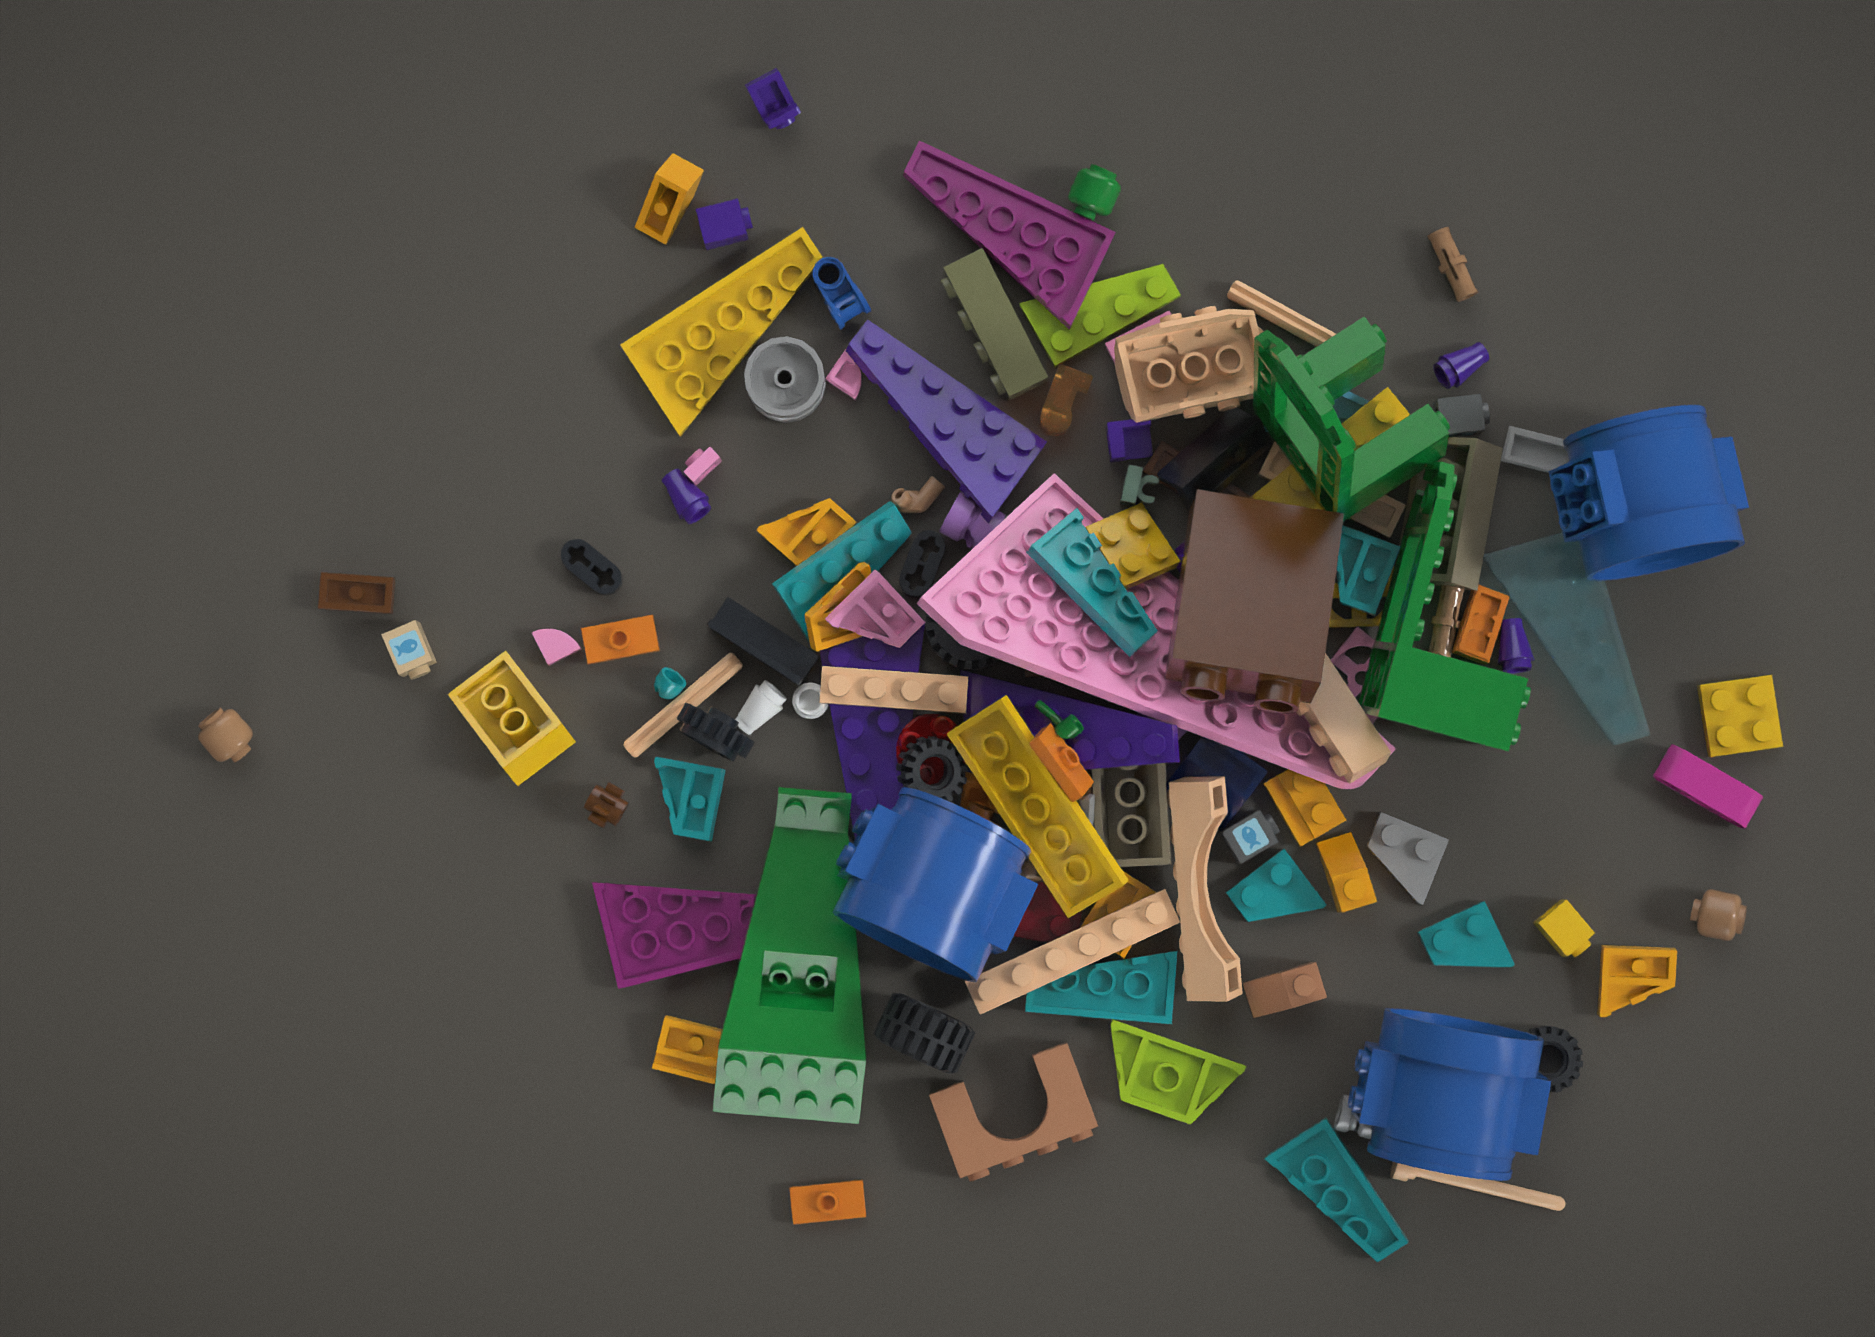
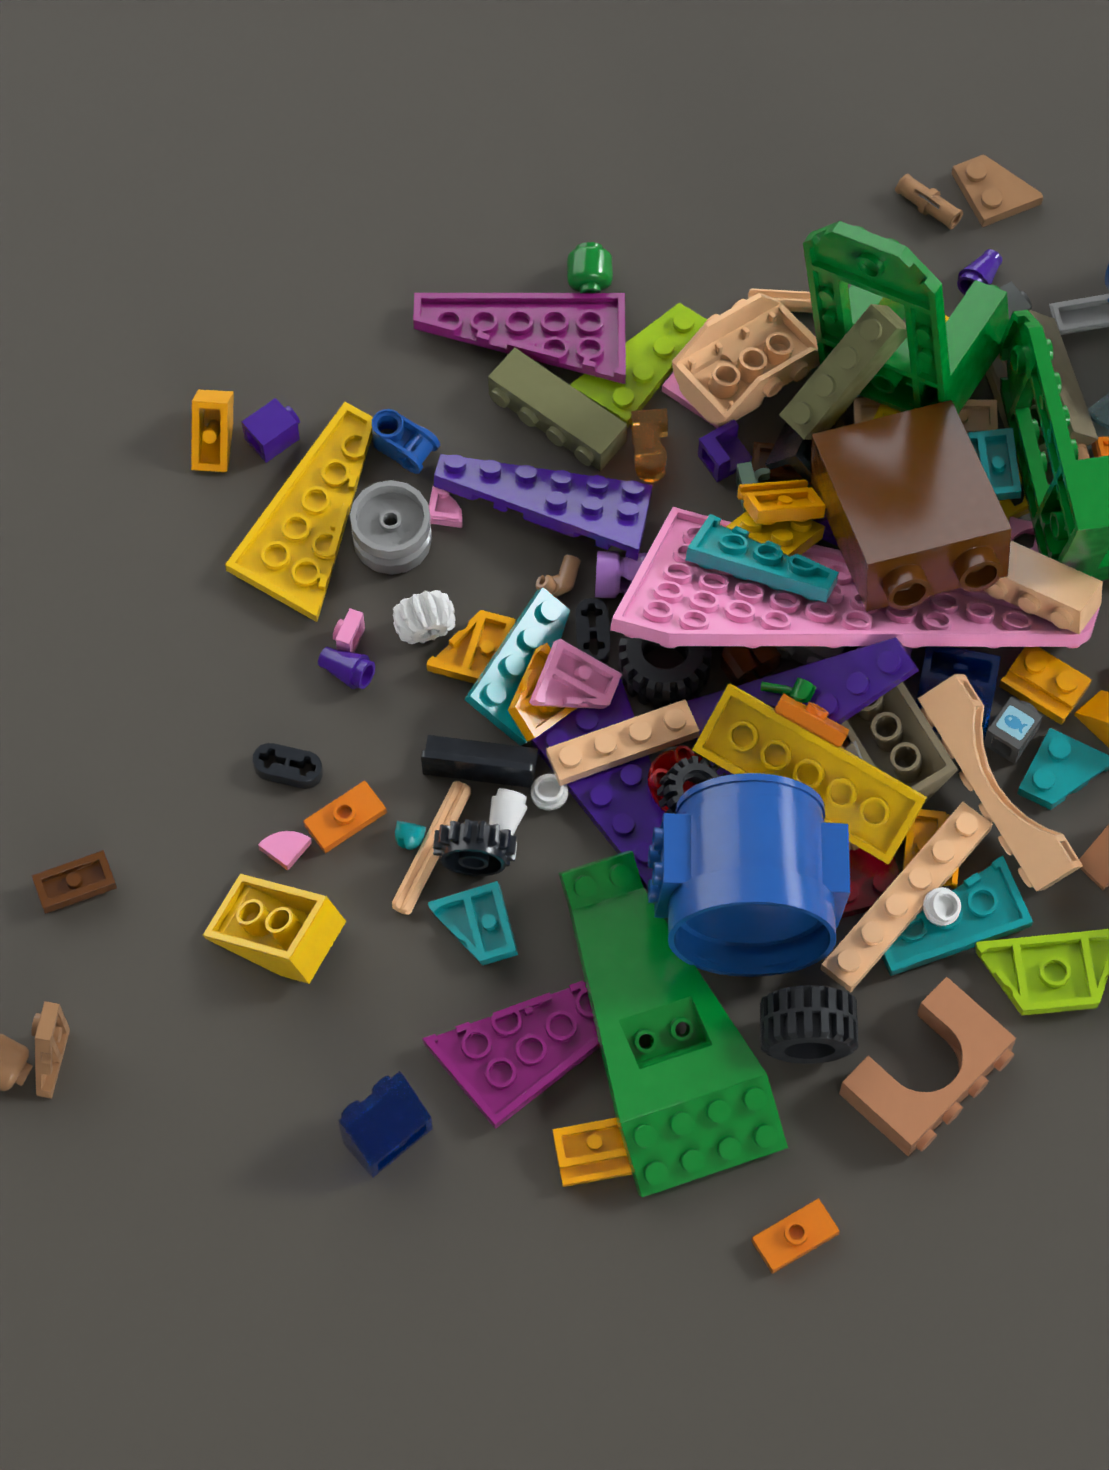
camera: 25 degrees left, 20 degrees down
(271, 737) = (51, 1036): none -> medium nougat wing
(409, 650) = (148, 908): tan brick -> none
(522, 949) = (384, 1123): none -> clear blue slope
(606, 805) = (402, 963): reddish brown gear -> none
(773, 100) = (267, 314): dark purple bracket -> none
(773, 484) = (424, 617): none -> white gear
(1096, 977) = (941, 906): none -> white plate
(1147, 525) = (781, 501): none -> light orange plate
(1248, 447) = (845, 371): none -> olive brick
(1521, 278) = (993, 190): none -> medium nougat wing

